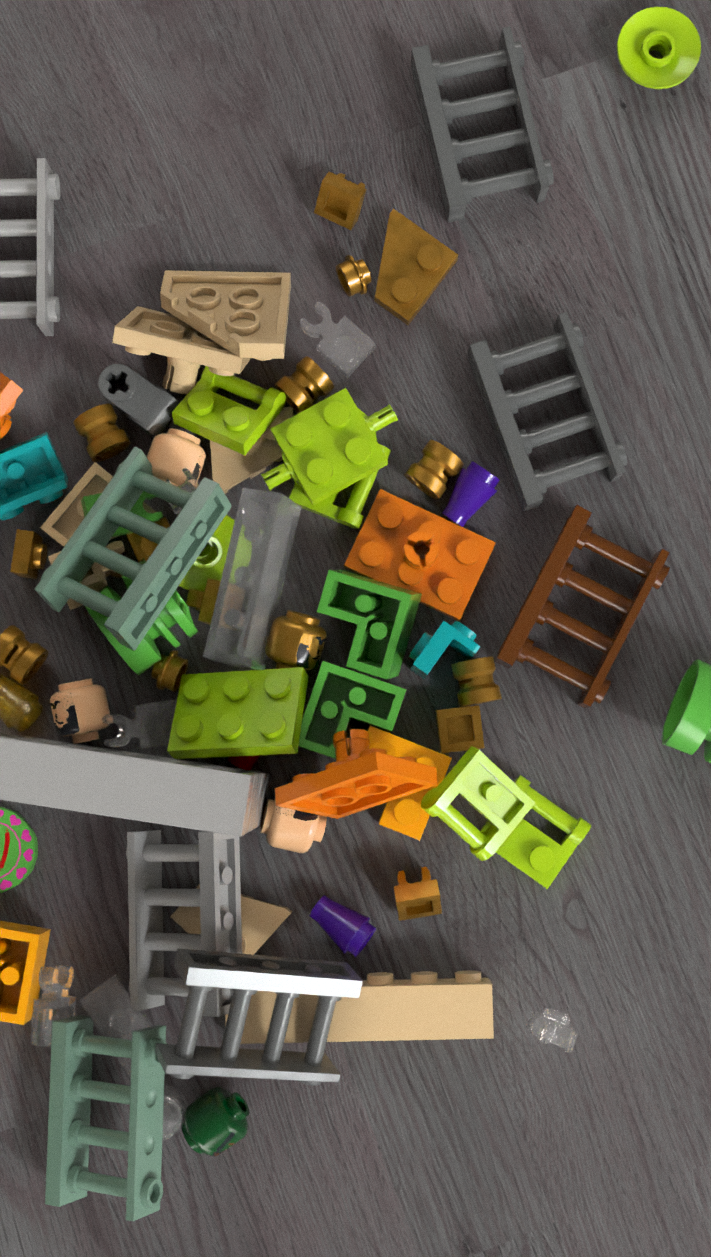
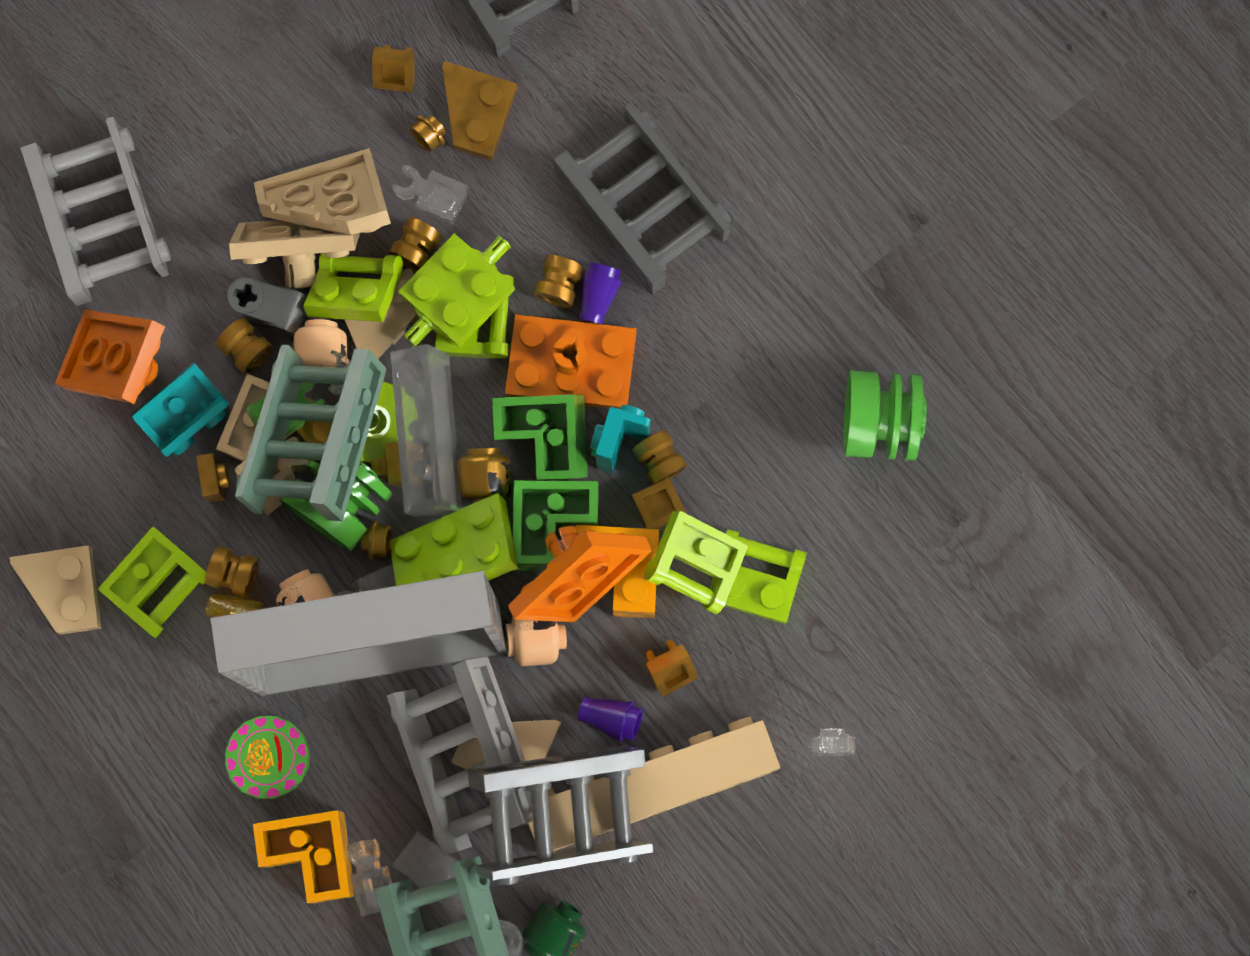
camera: 20 degrees left, 5 degrees down
(560, 572) = (696, 375): reddish brown fence -> none

